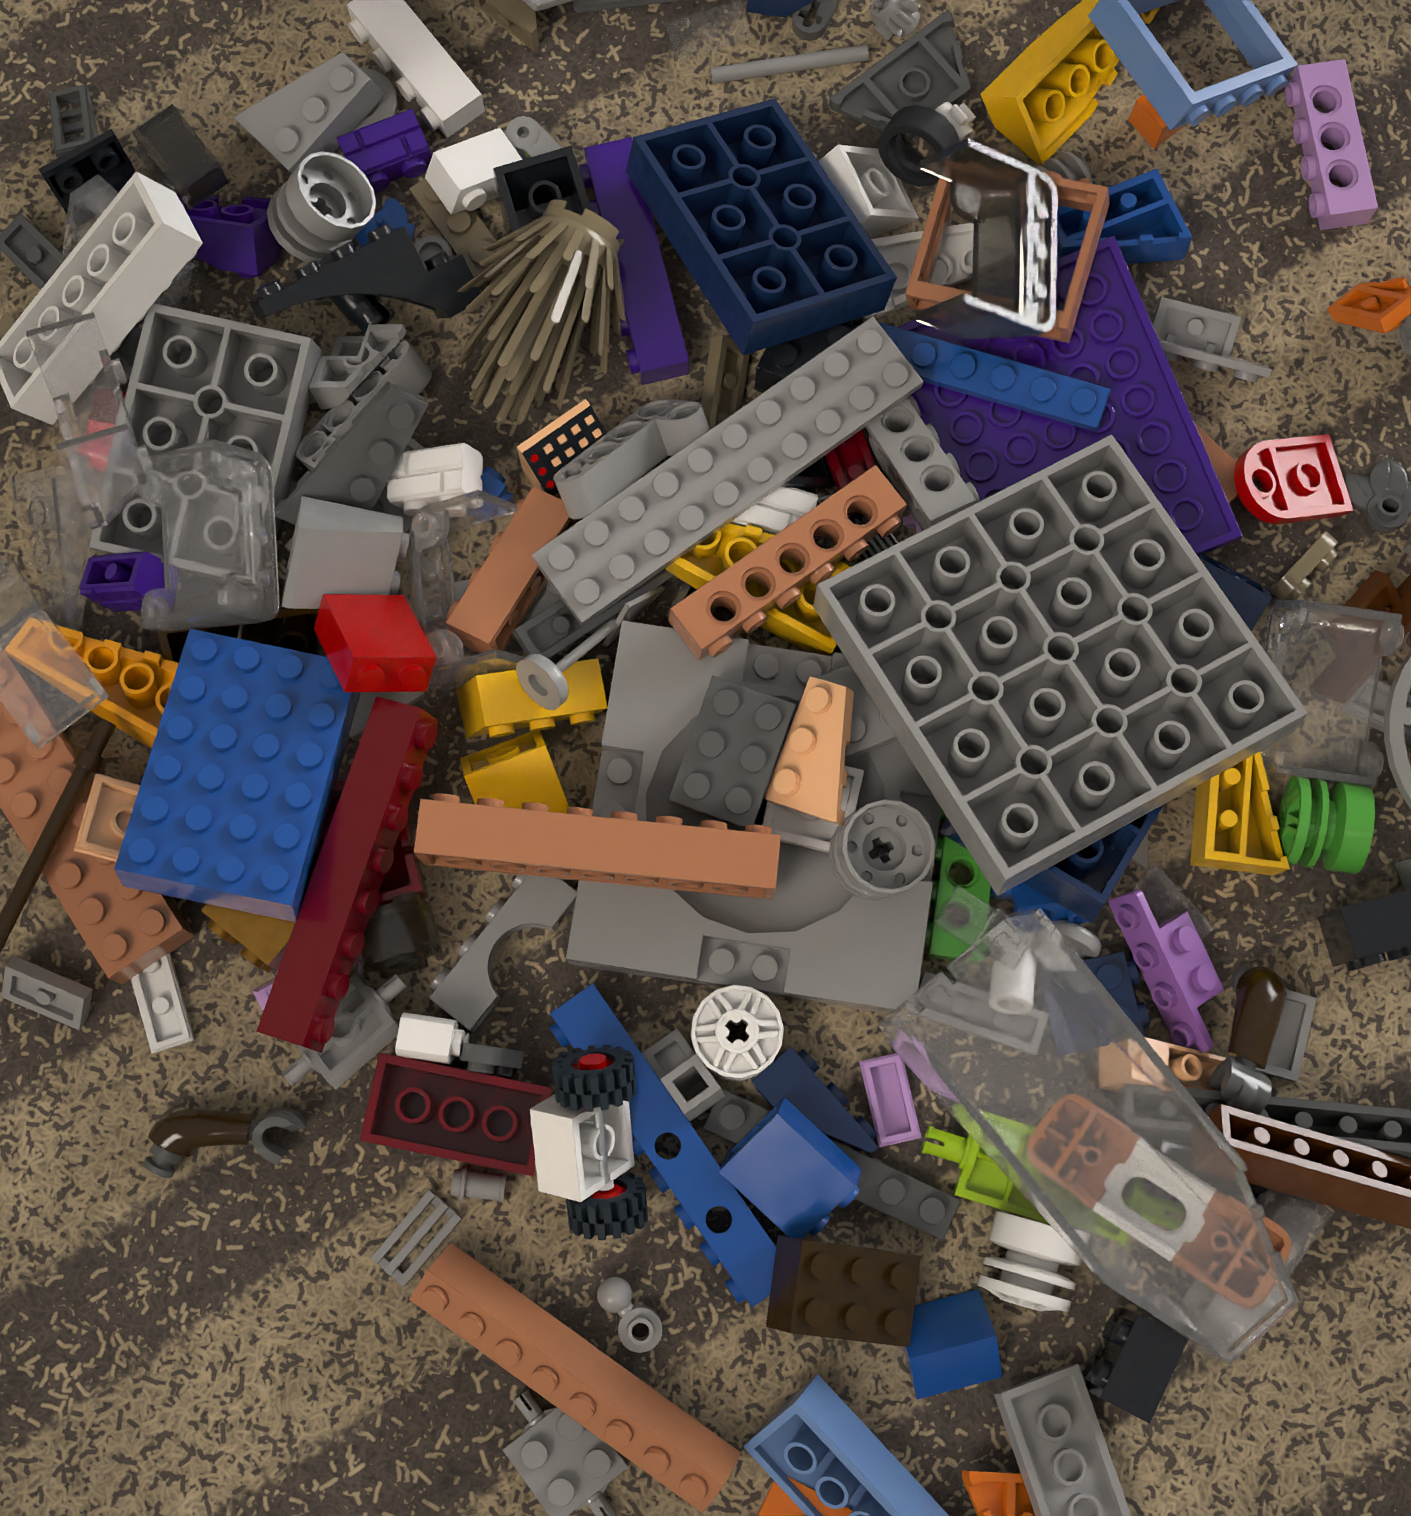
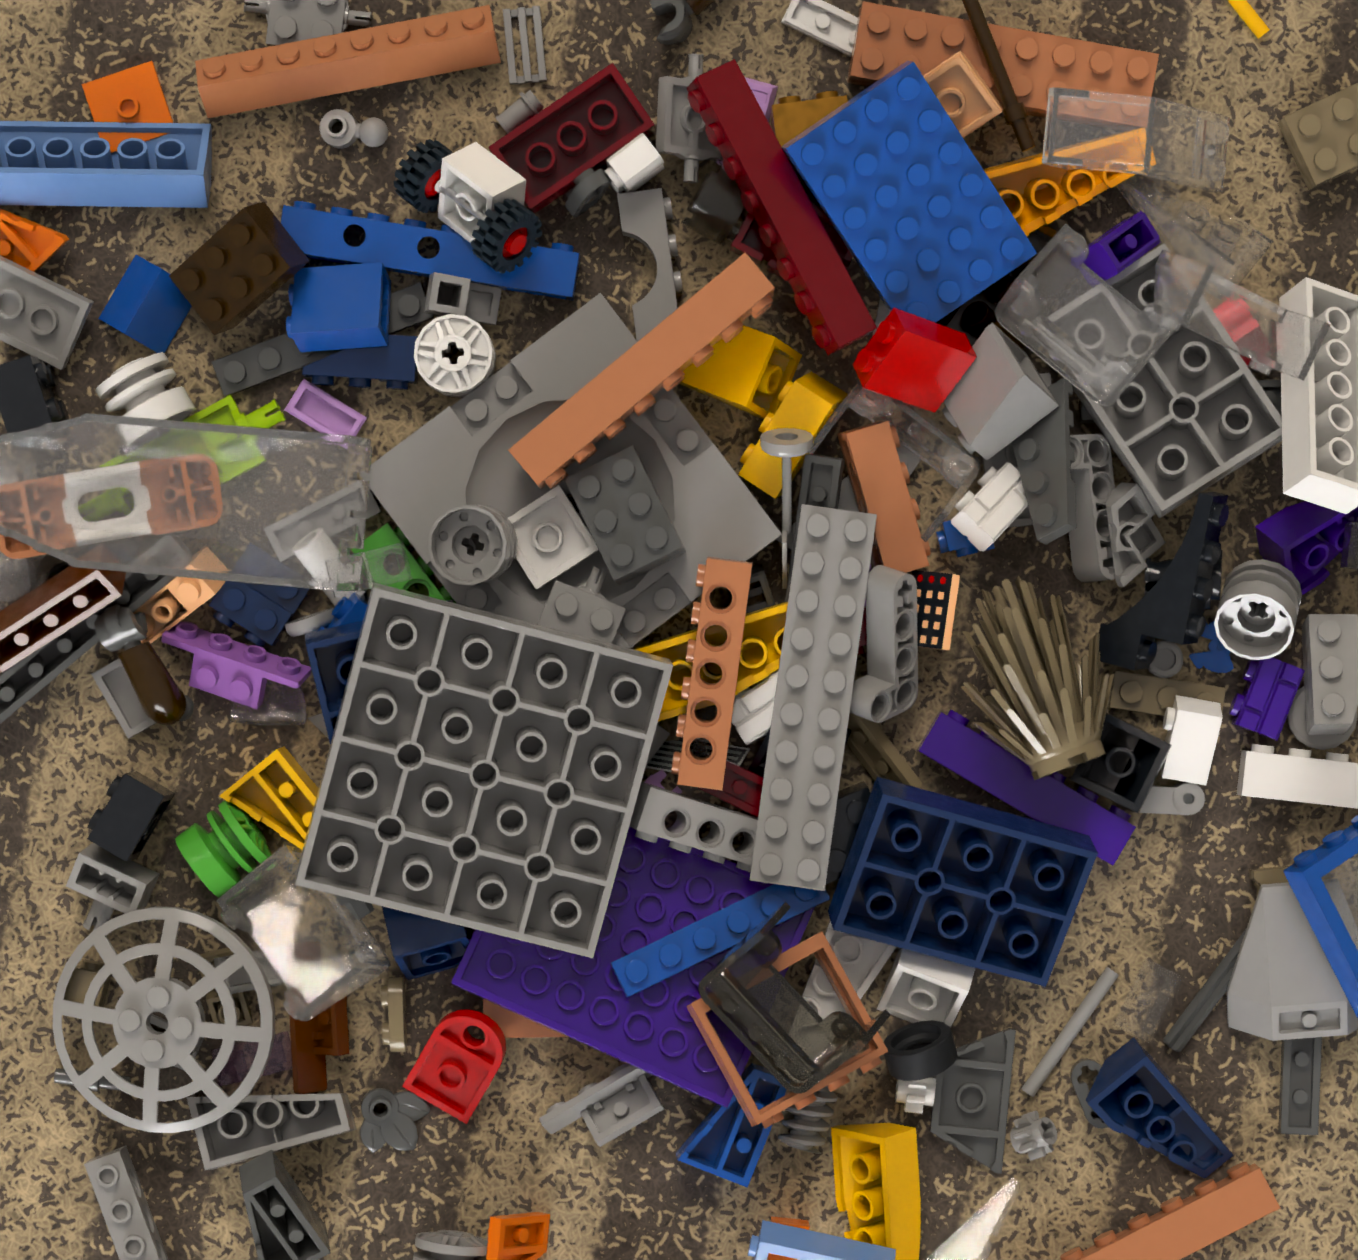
camera: 135 degrees right, 10 degrees up
(813, 756) = (570, 557): light nougat wing -> none

